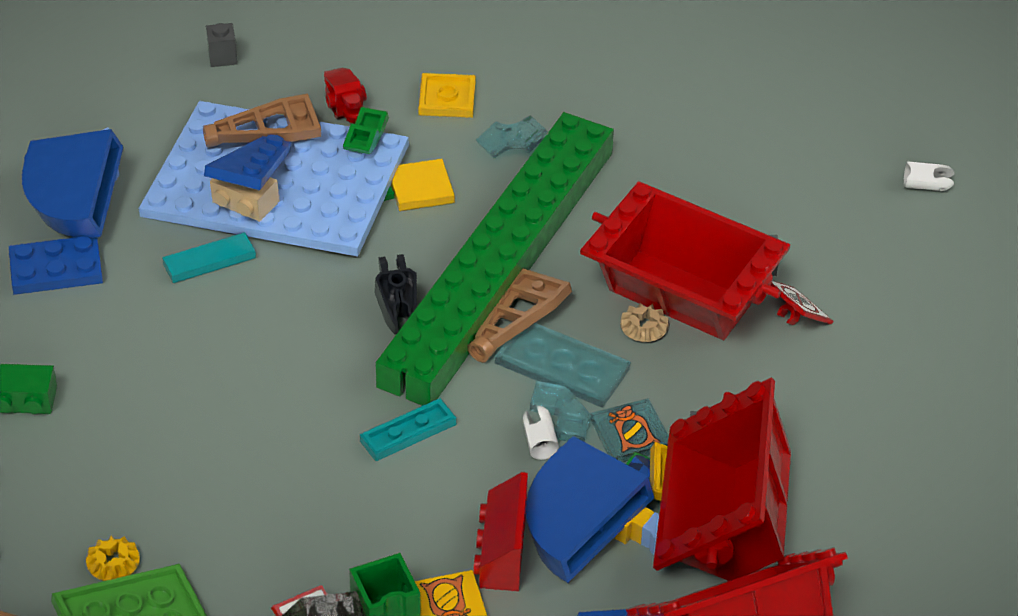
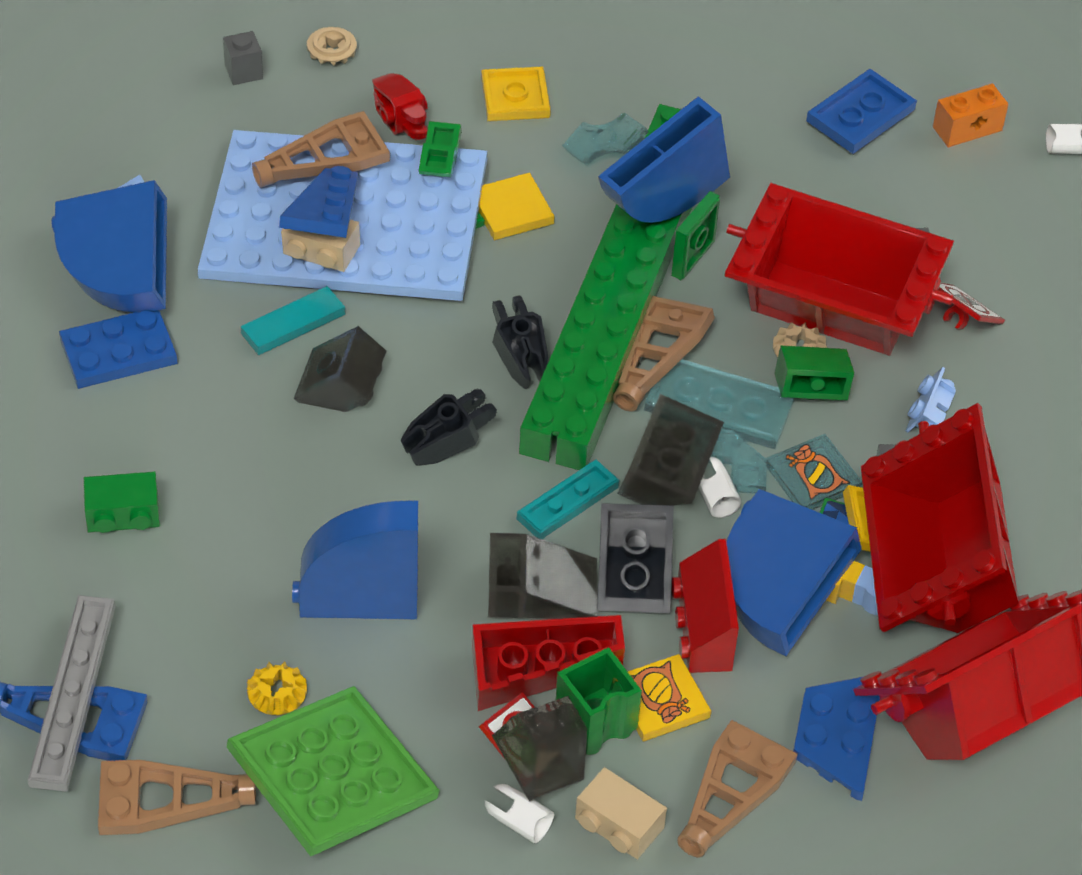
camera: 10 degrees left, 5 degrees up
(206, 460) = (362, 565): none -> blue brick
(238, 303) = (342, 372): none -> clear smoke slope
(308, 38) = (333, 37): none -> tan gear
(315, 357) = (447, 427): none -> black hinge
(326, 551) = (530, 653): none -> red wedge
(362, 492) = (539, 579): none -> clear smoke slope
(453, 483) = (635, 558): none -> black slope
(502, 400) = (670, 455): none -> clear smoke slope
(550, 158) = (671, 166): none -> blue brick
(569, 221) = (695, 235): none -> green tile
(648, 345) = (814, 372): none -> green brick
(743, 136) = (861, 111): none -> blue plate
(752, 372) = (933, 393): none -> light blue hinge
(838, 148) = (970, 115): none -> orange brick

